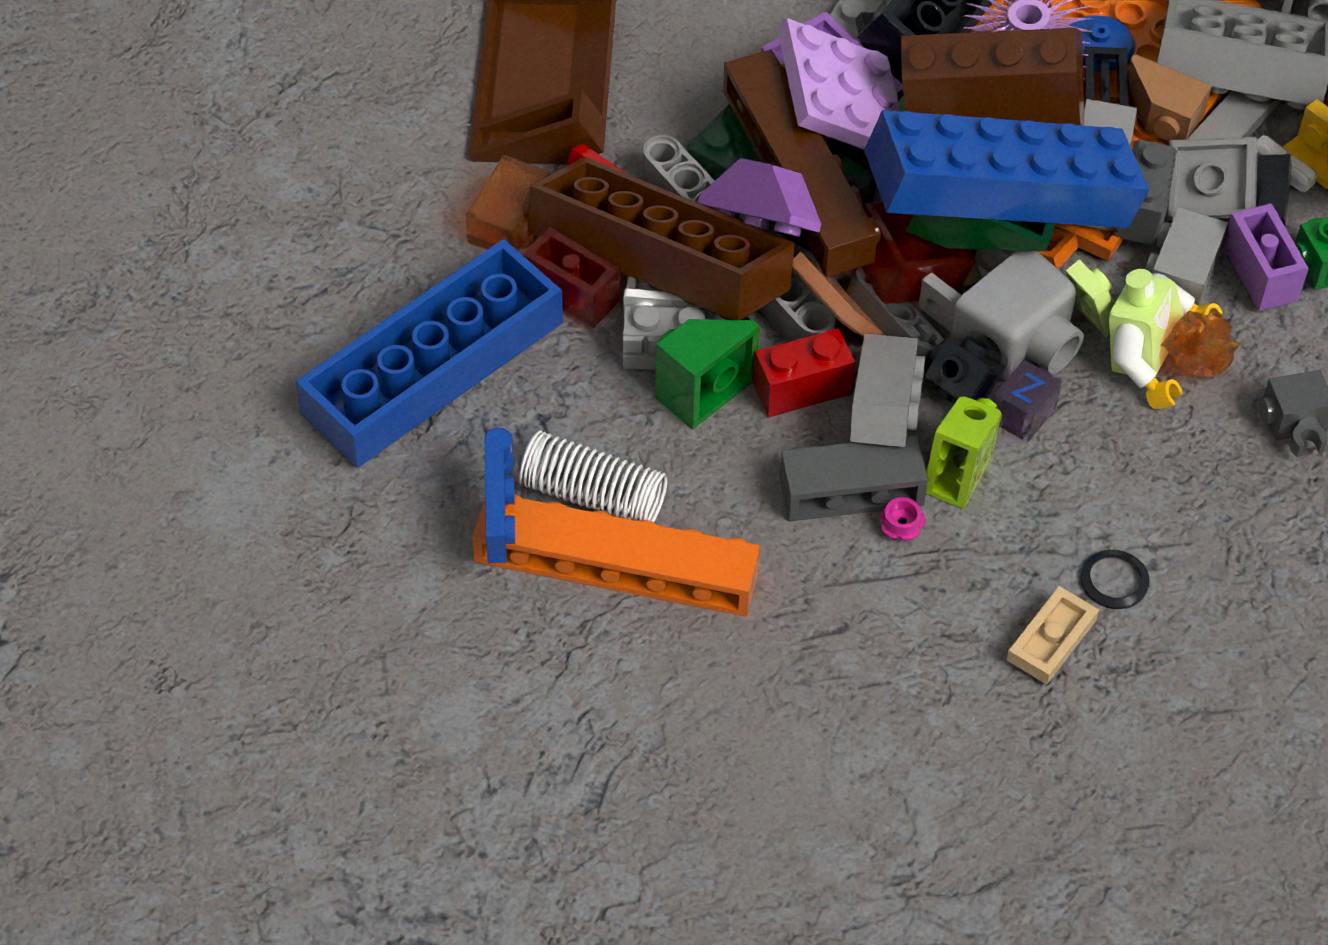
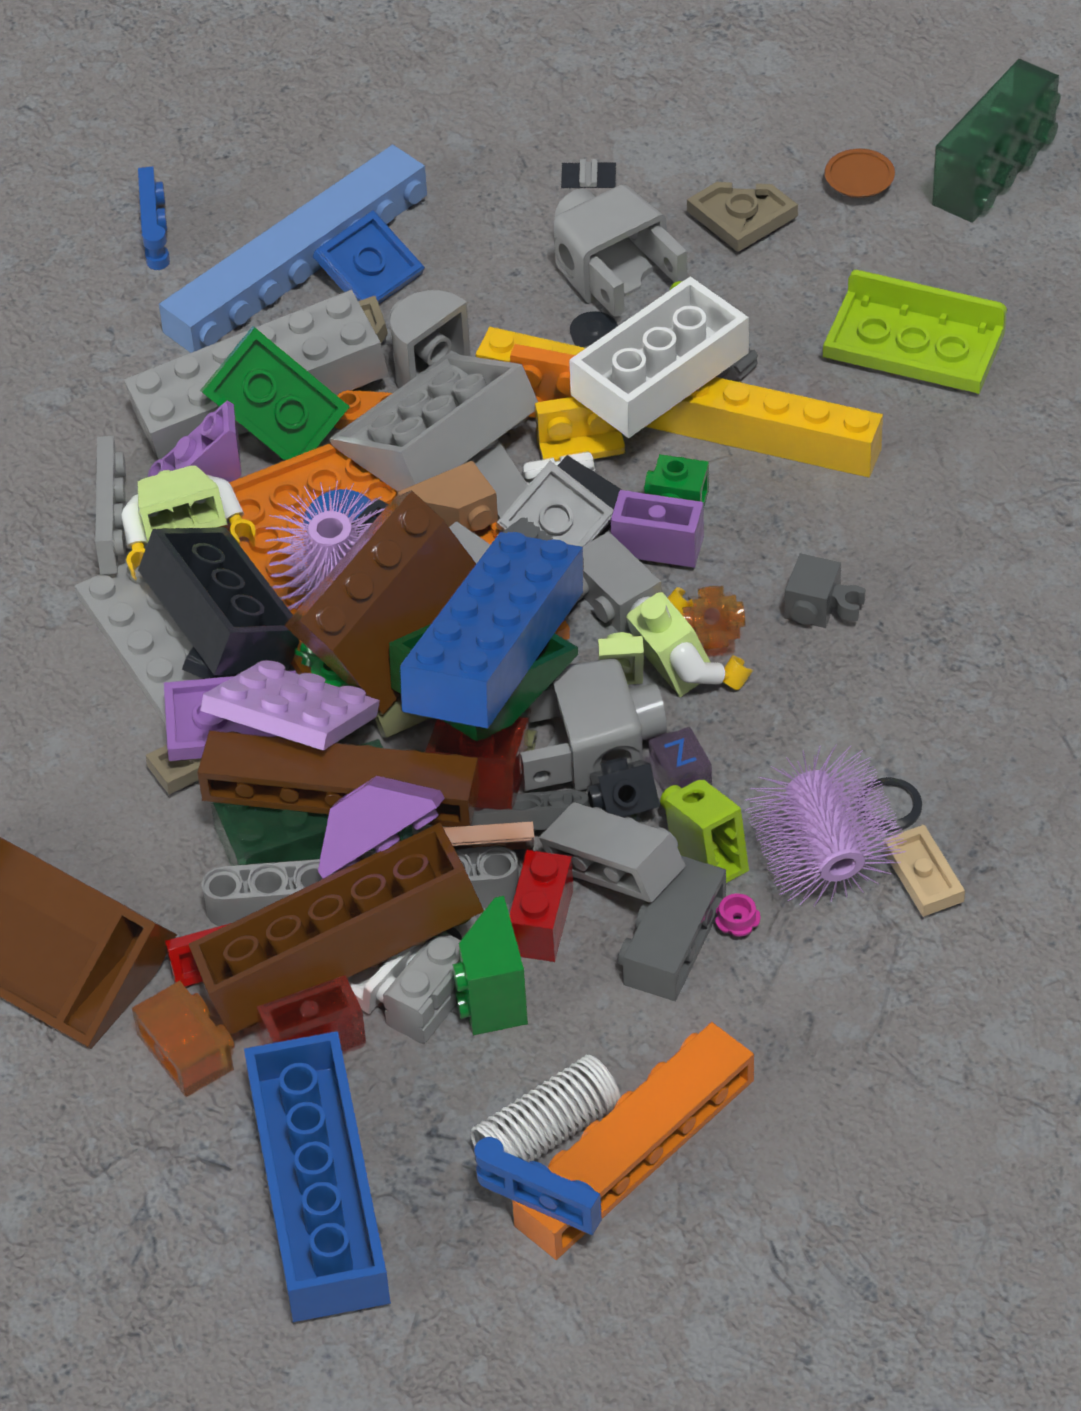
camera: 55 degrees left, 5 degrees down
(1019, 525) = (825, 825): none -> lavender piece

